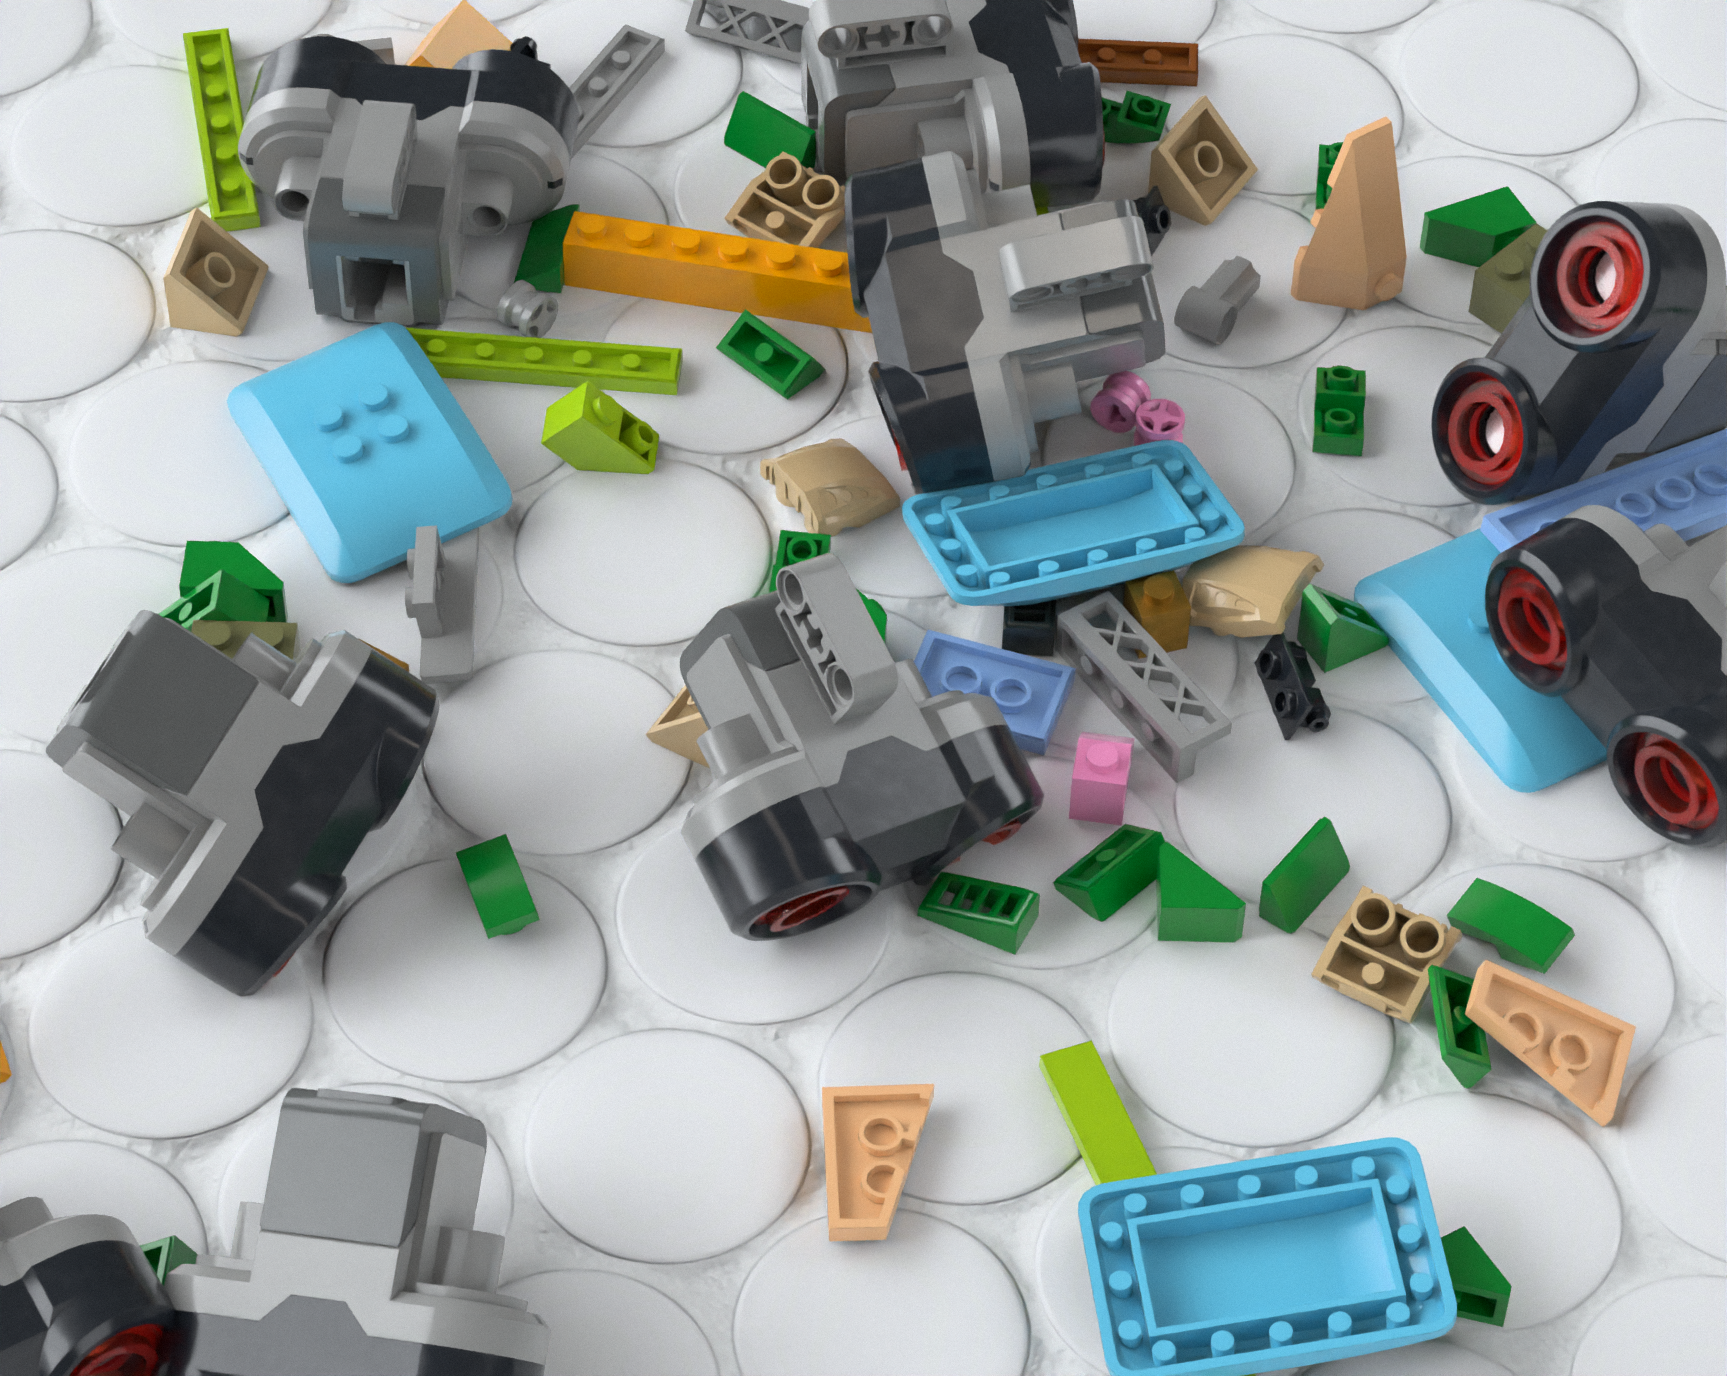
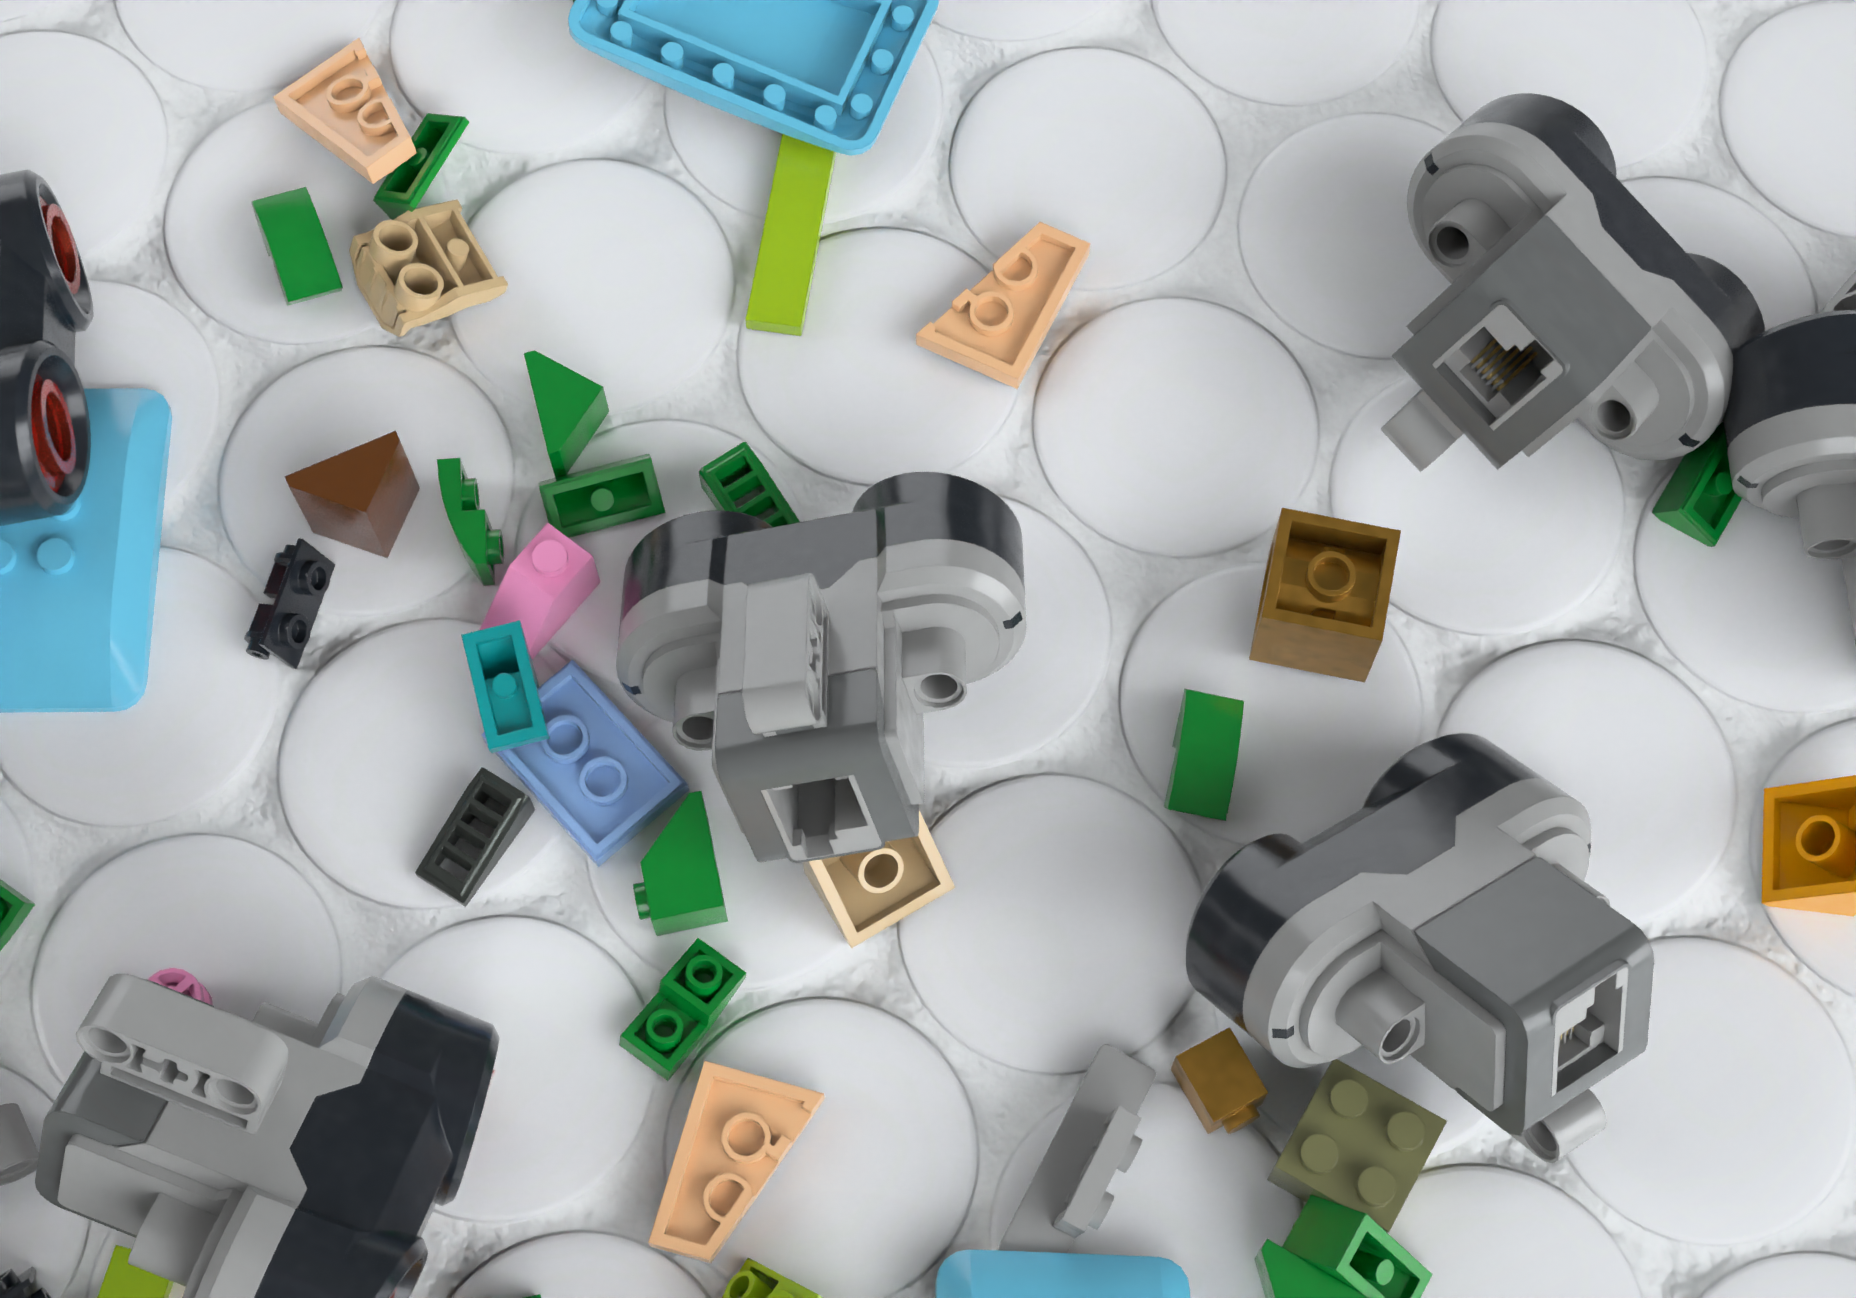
camera: 150 degrees left, 20 degrees up
(456, 1003) = (1325, 595): none -> pearl gold brick
(706, 507) = (726, 1155): none -> light nougat wing
(830, 486) = (573, 1118): tan slope -> none
(1070, 677) = (505, 686): none -> teal slope
(1073, 526) = (367, 867): medium azure wedge -> none
(1127, 695) = (458, 693): light grey fence -> none
(1160, 609) = (360, 744): pearl gold brick -> none
(1195, 784) = (471, 526): none -> green slope
(1248, 589) = (248, 717): tan slope -> none
(1291, 744) = (358, 494): none -> reddish brown slope
(1303, 877) = (441, 394): green slope -> none
(1336, 629) = (193, 641): green slope -> none

